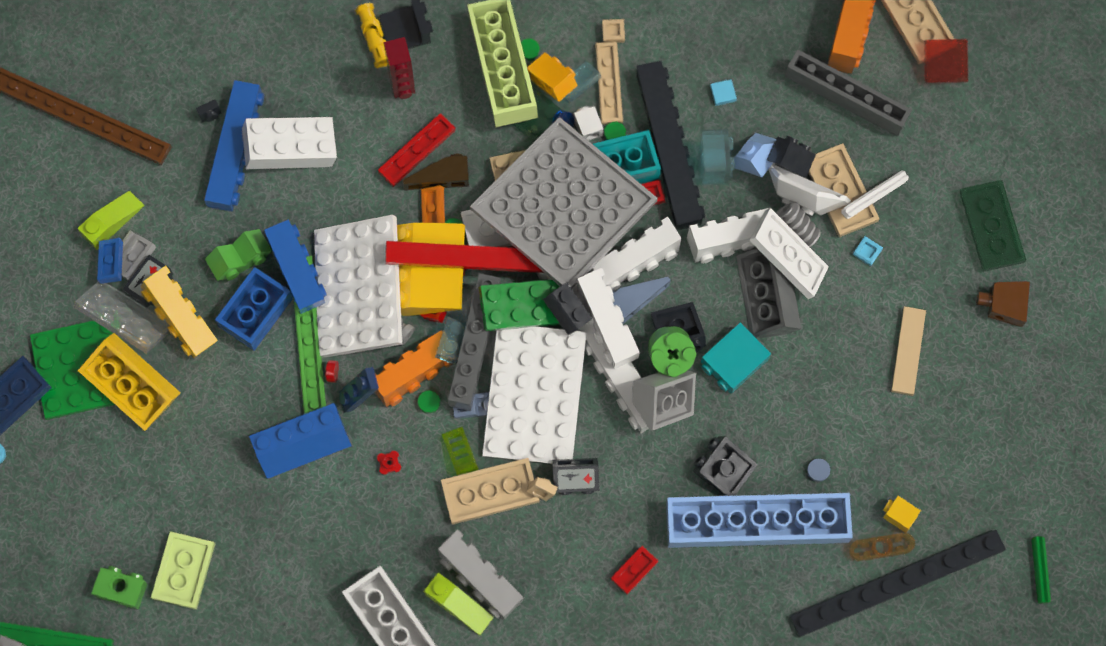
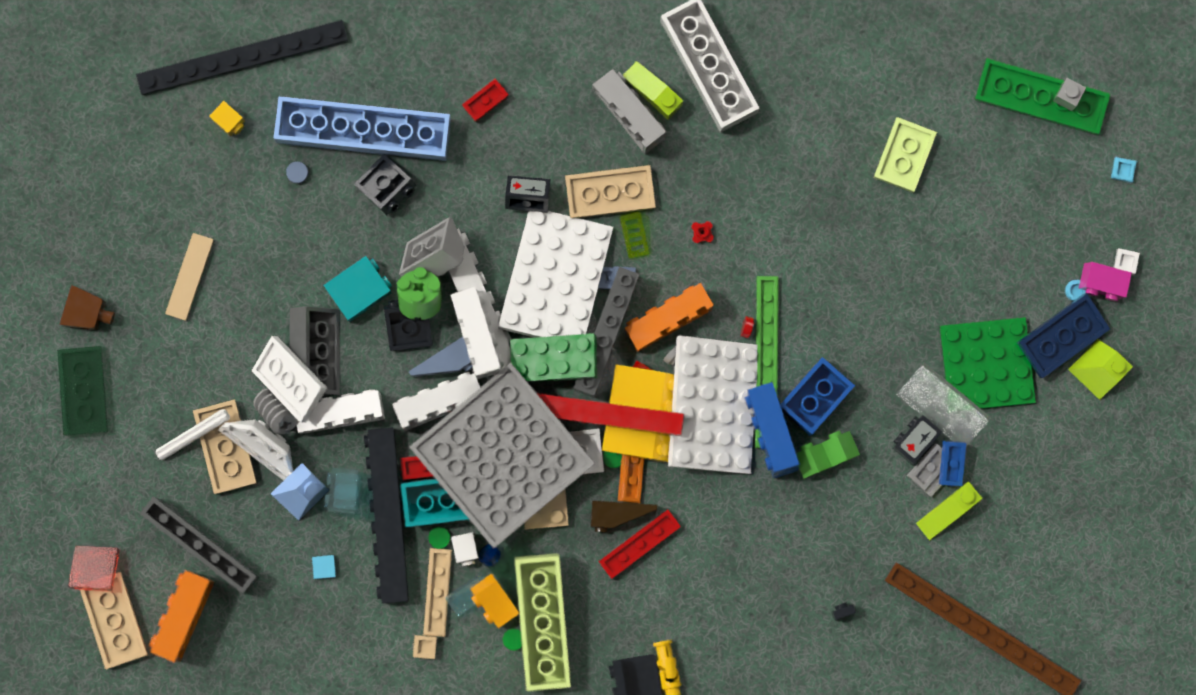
camera: 170 degrees left, 10 degrees up
(129, 381) = (941, 338): yellow slope -> none
(130, 596) = (976, 142): bright green brick -> none
(178, 313) = (890, 399): yellow wedge -> none
(230, 154) = (821, 572): blue brick -> none
(289, 142) = (766, 561): white brick -> none
(300, 440) = (784, 262): blue slope -> none
(358, 389) = (723, 297): dark blue plate -> none
(399, 68) = (647, 617): dark red brick -> none
(429, 402) = (657, 286): green tile -> none
(451, 340) = (629, 336): clear light blue plate -> none
(542, 489) = (561, 183): tan plate -> none
(567, 308) = (513, 344): black brick -> none
(792, 156) = (268, 479): black brick -> none
(867, 251) = (210, 382): medium azure tile -> none
(899, 549) = (245, 85): clear orange beam -> none
(1041, 570) = (107, 52): green axle -> none

